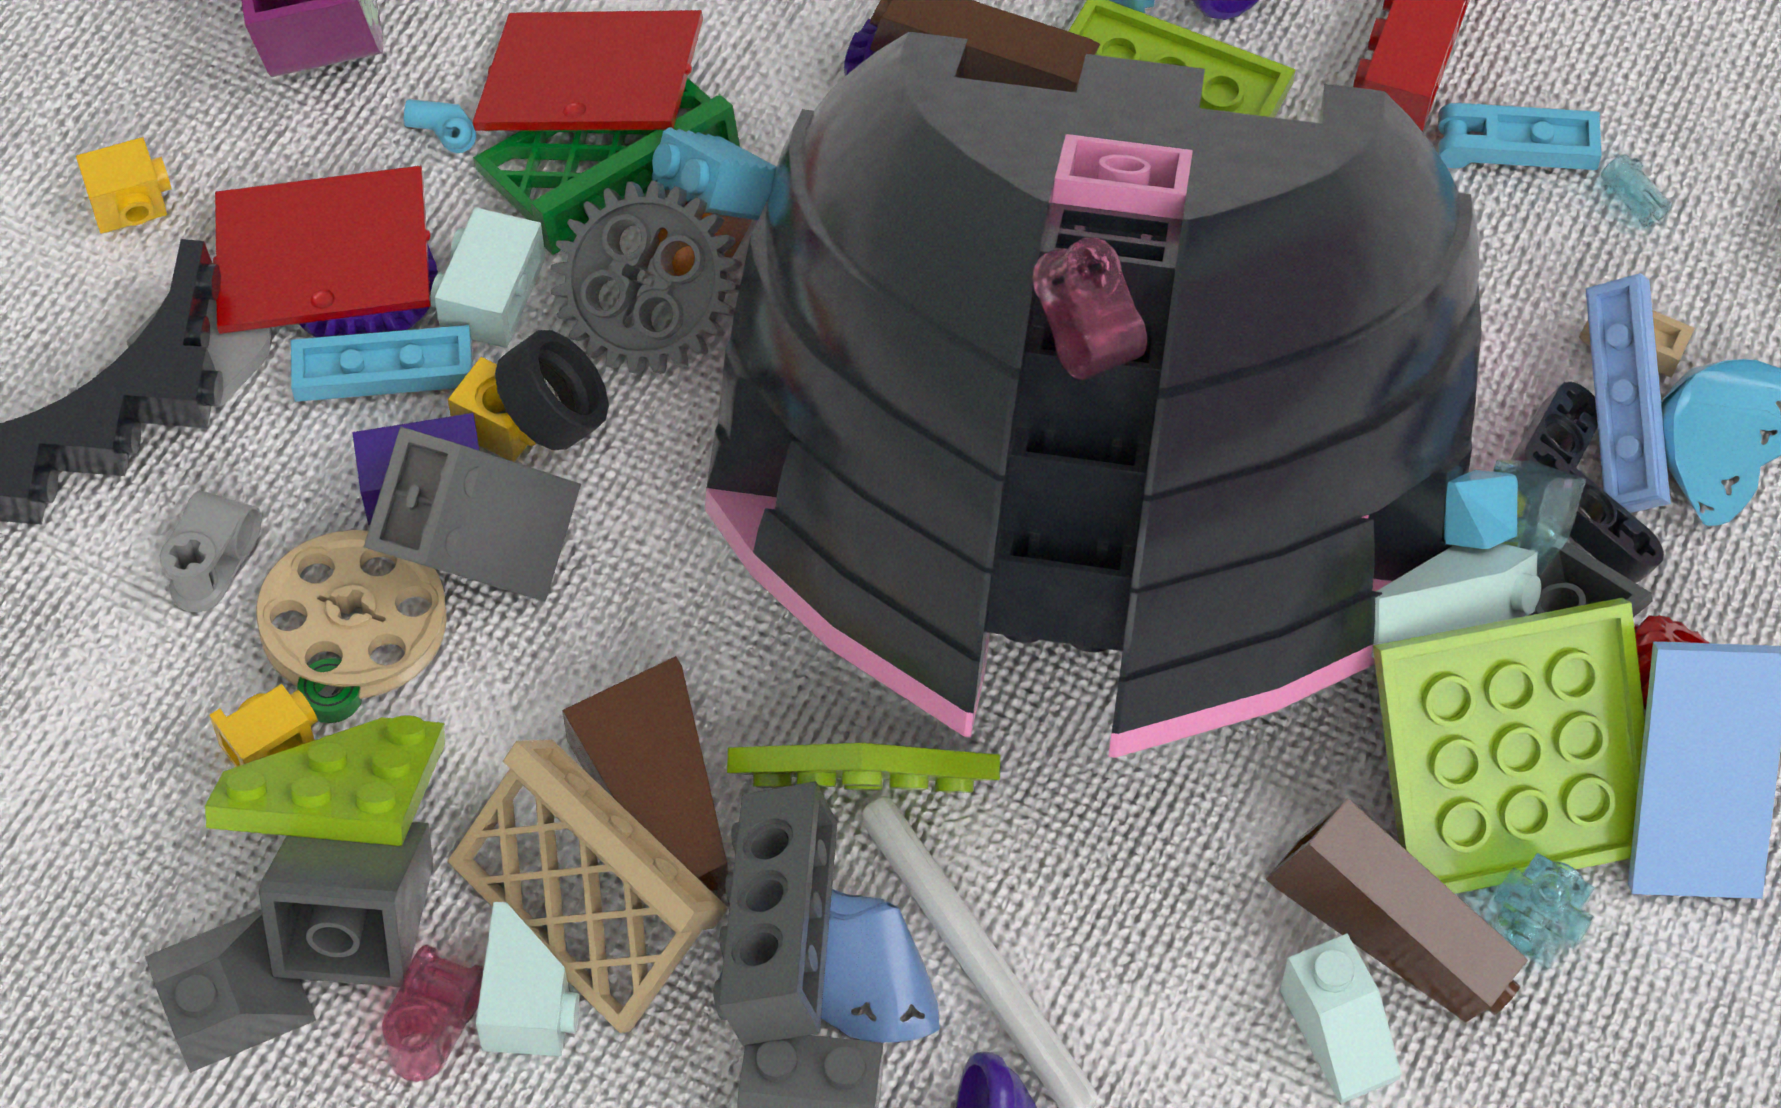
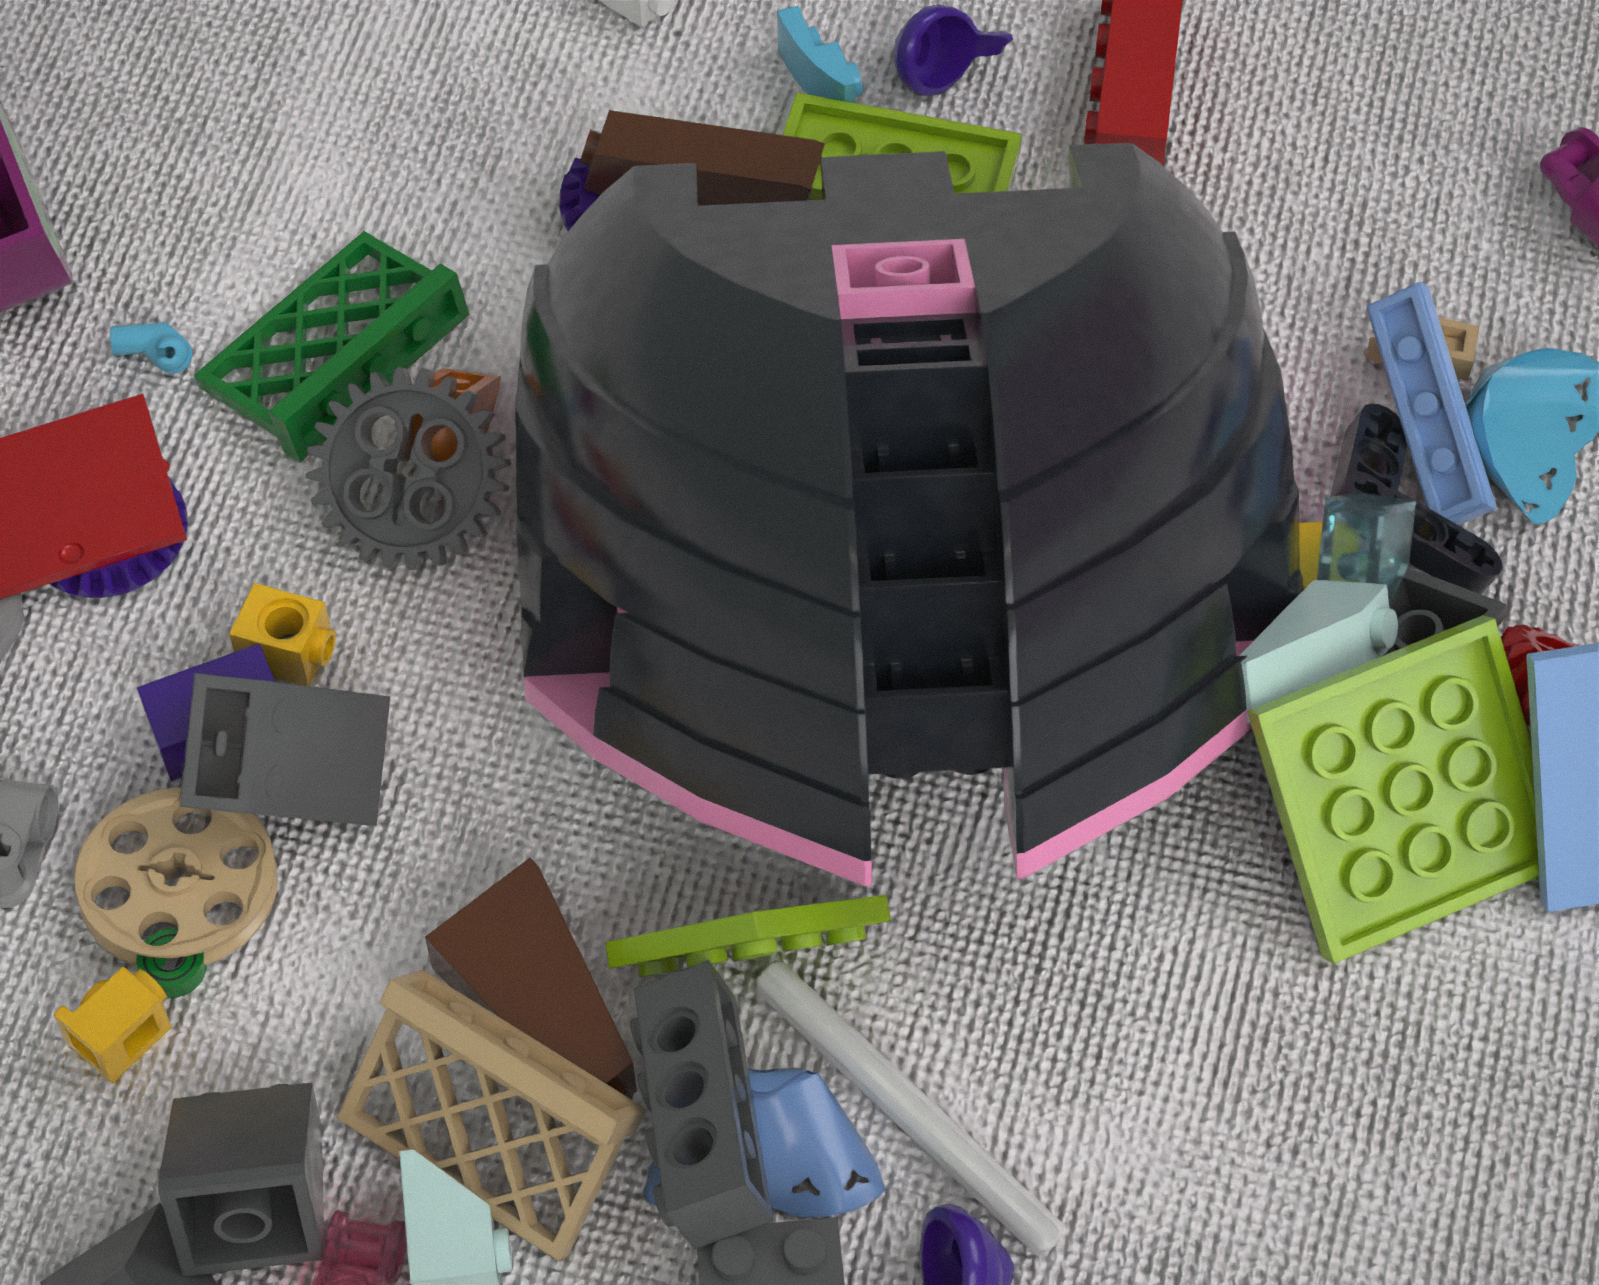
camera: 10 degrees left, 0 degrees up
(338, 787) = (207, 1064): lime plate -> none
(380, 363) = (146, 608): medium azure plate -> none
(489, 275) = (239, 497): light aqua brick -> none
(532, 403) = (336, 604): black tyre -> none
(589, 71) = (296, 263): red piece -> none
(714, 171) = (455, 345): medium azure brick -> none
(1090, 312) = (914, 426): clear pink piece -> none
(1341, 1017) = (1290, 1096): light aqua slope -> none
(1399, 913) = (1323, 977): slope -> none
(1481, 509) = (1321, 551): medium azure slope -> none
(1519, 136) = (1262, 162): medium azure plate -> none
(1544, 909) = (1466, 946): clear light blue brick -> none
(1635, 189) = (1388, 196): clear light blue pin -> none

